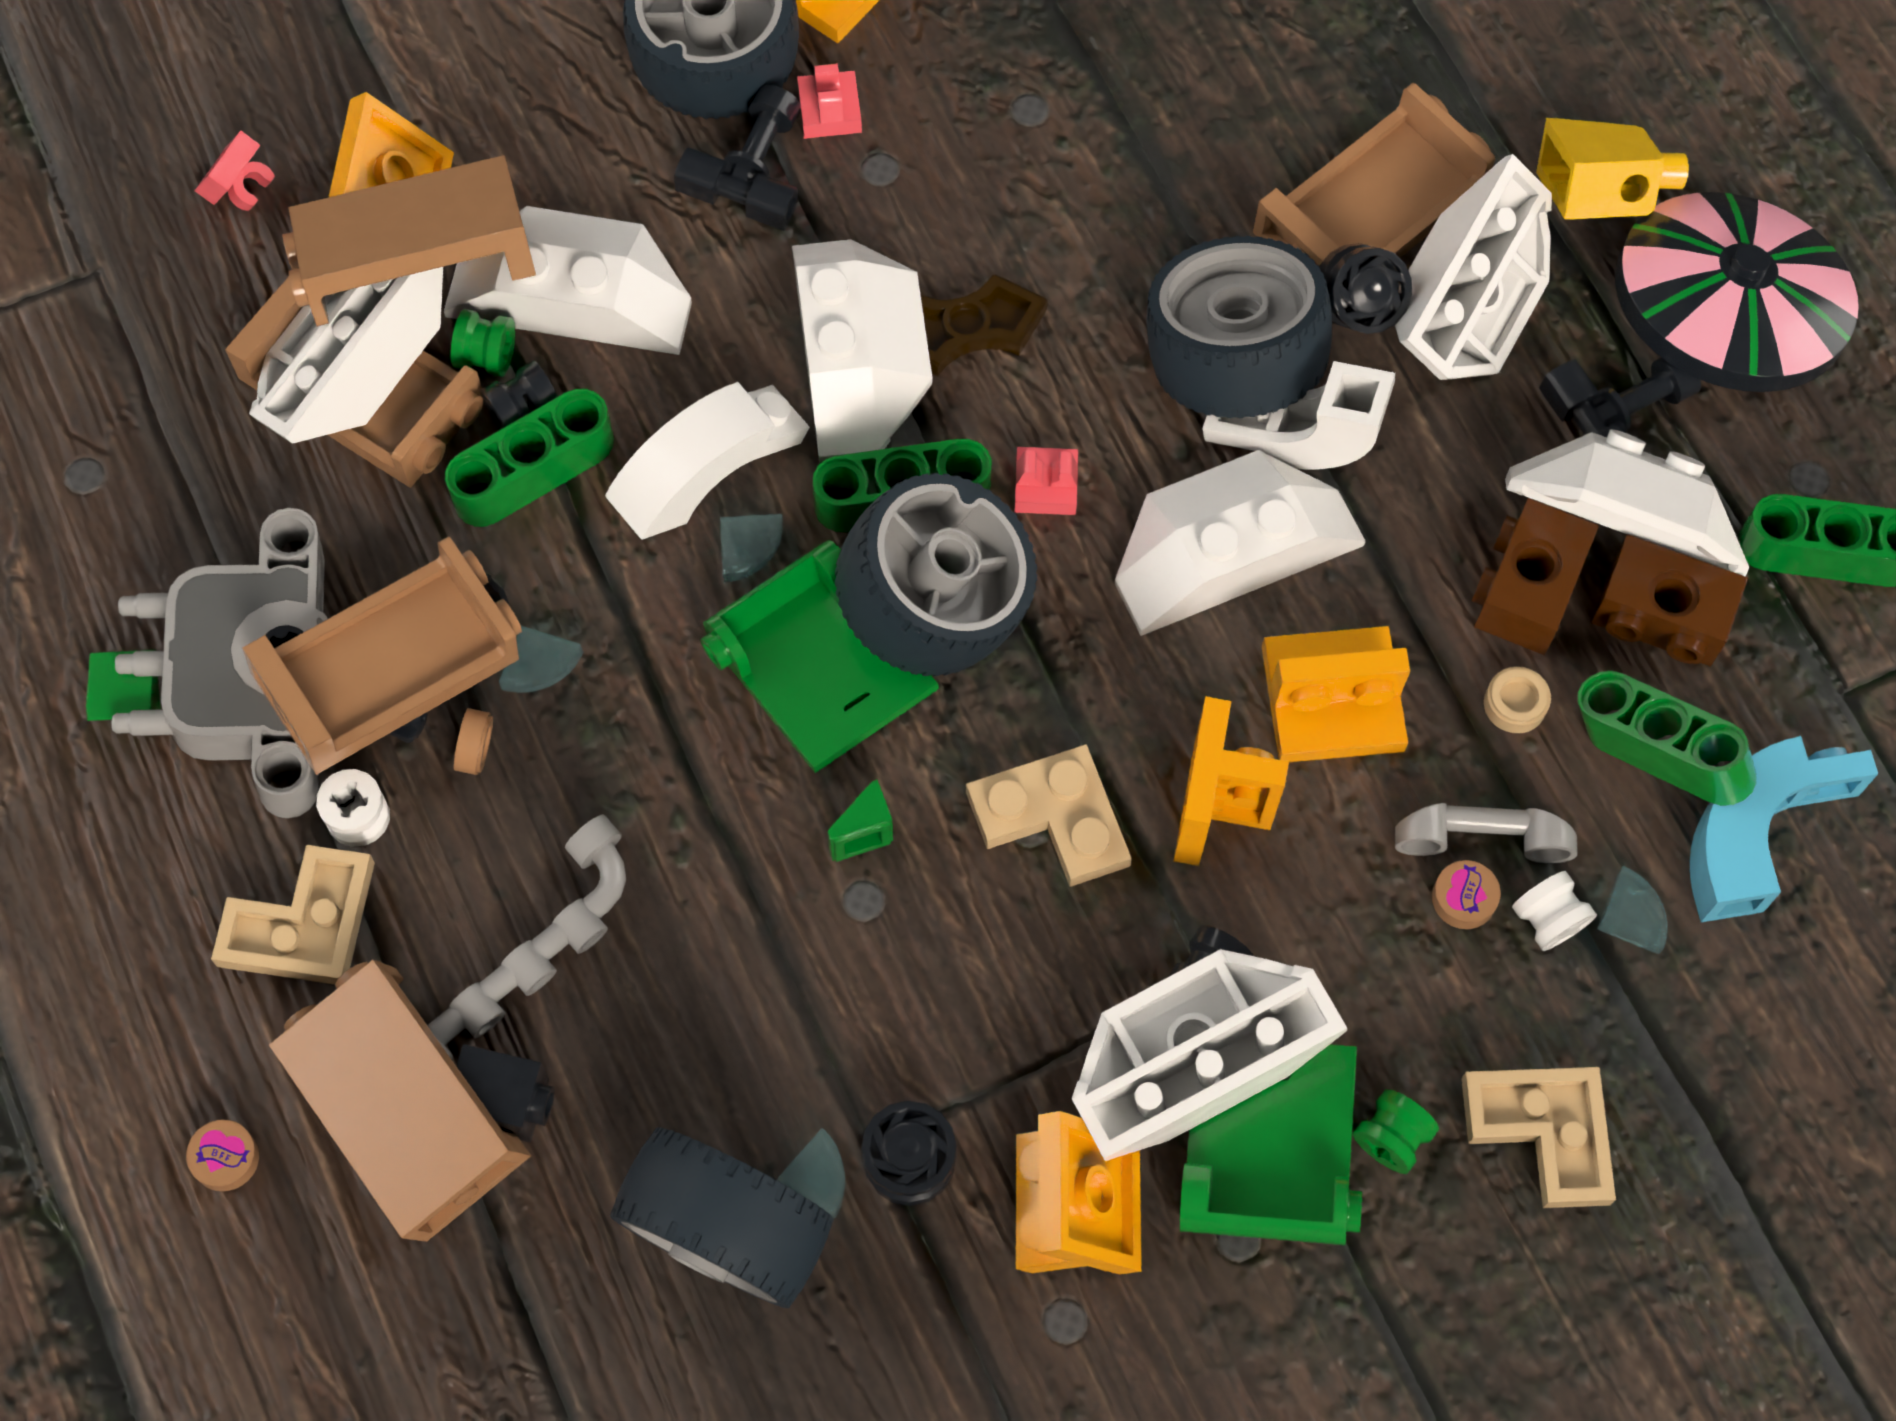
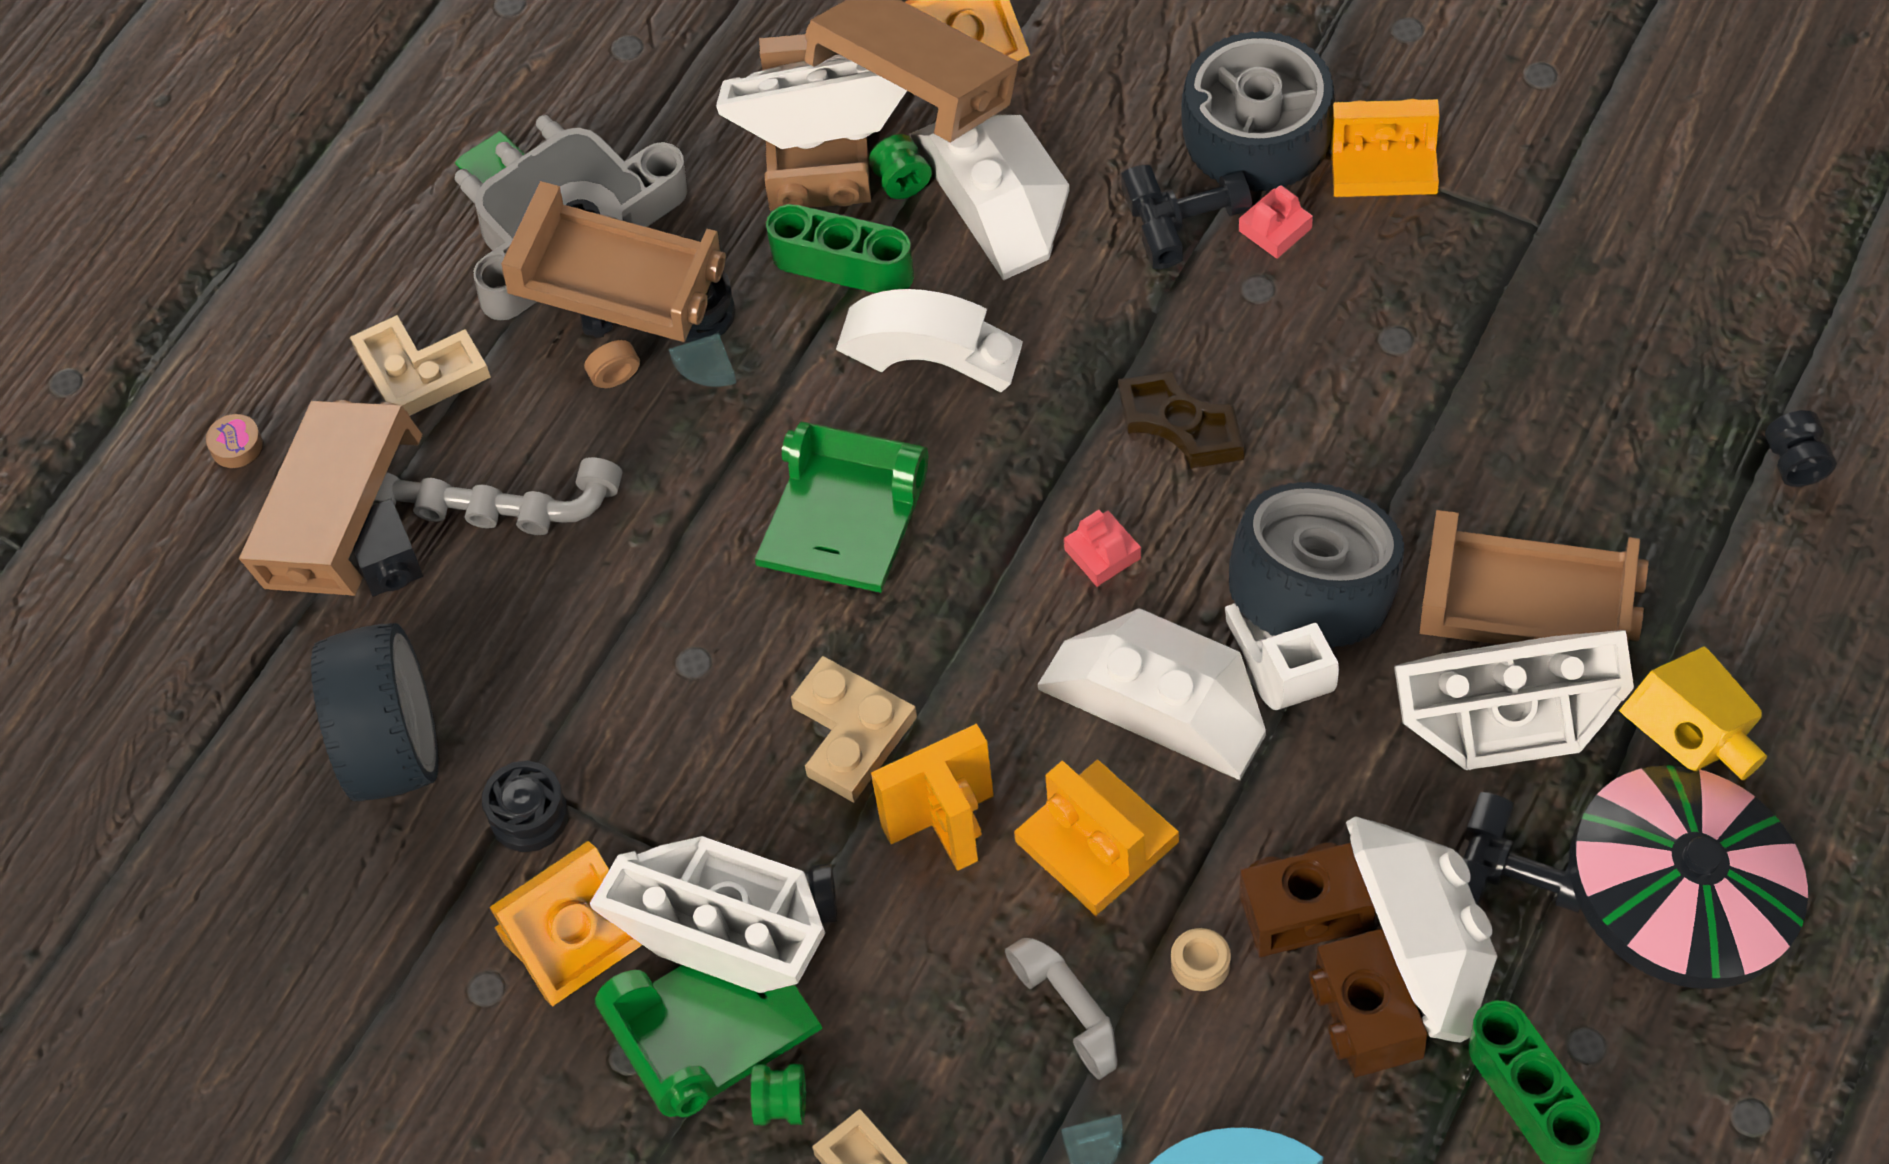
camera: 60 degrees right, 10 degrees down
(362, 819) = (511, 350): white wheel -> none
(518, 396) = (868, 206): black wheel -> none
(748, 543) = (893, 414): clear light blue tile -> none
(818, 1173) = (469, 769): clear light blue tile -> none
(860, 344) = (1095, 362): white wedge -> none
(862, 826) = (738, 614): green slope -> none
(874, 471) = (1019, 484): green beam -> none
(935, 574) = (922, 551): wheel -> none
(1366, 287) = (1422, 617): black wheel -> none
(1466, 894) = (1010, 1026): medium nougat tile -> none
(1554, 910) = (1040, 1088): white wheel -> none
(1681, 760) = (1235, 1063): green beam -> none

